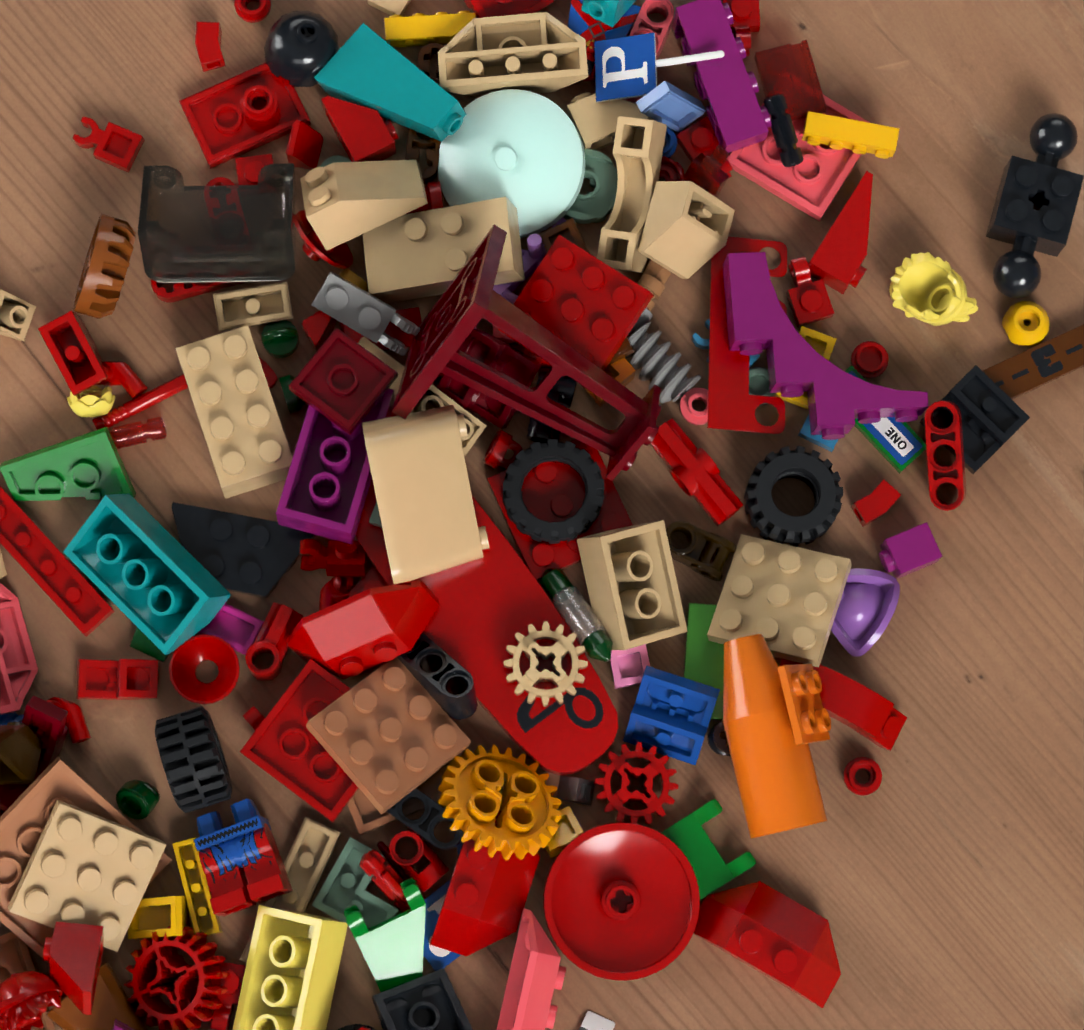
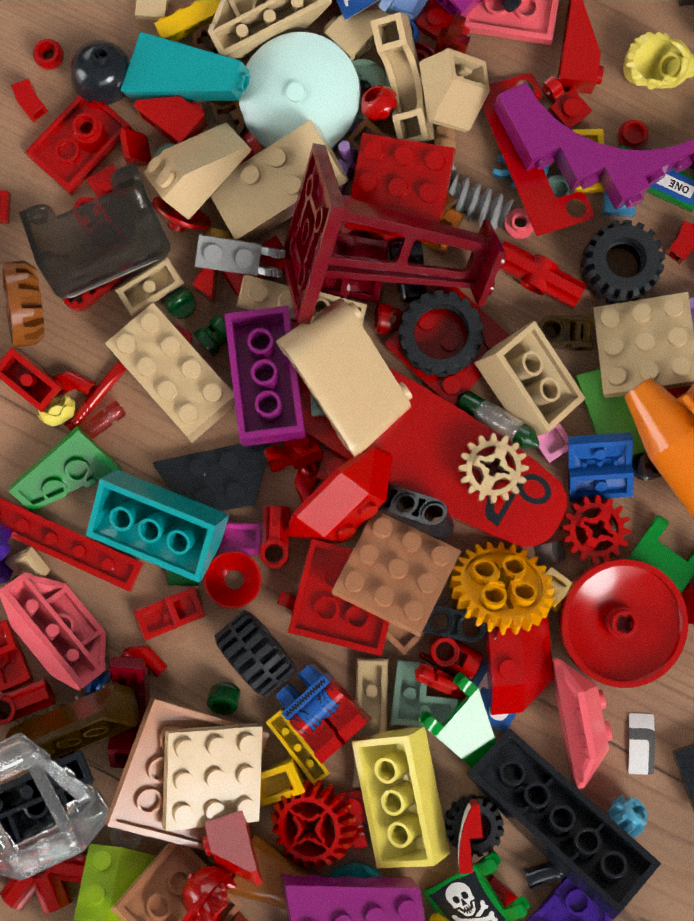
camera: 15 degrees left, 5 degrees up
(343, 381) = (247, 314): dark red plate -> none
(593, 207) = (378, 102): none -> red plate

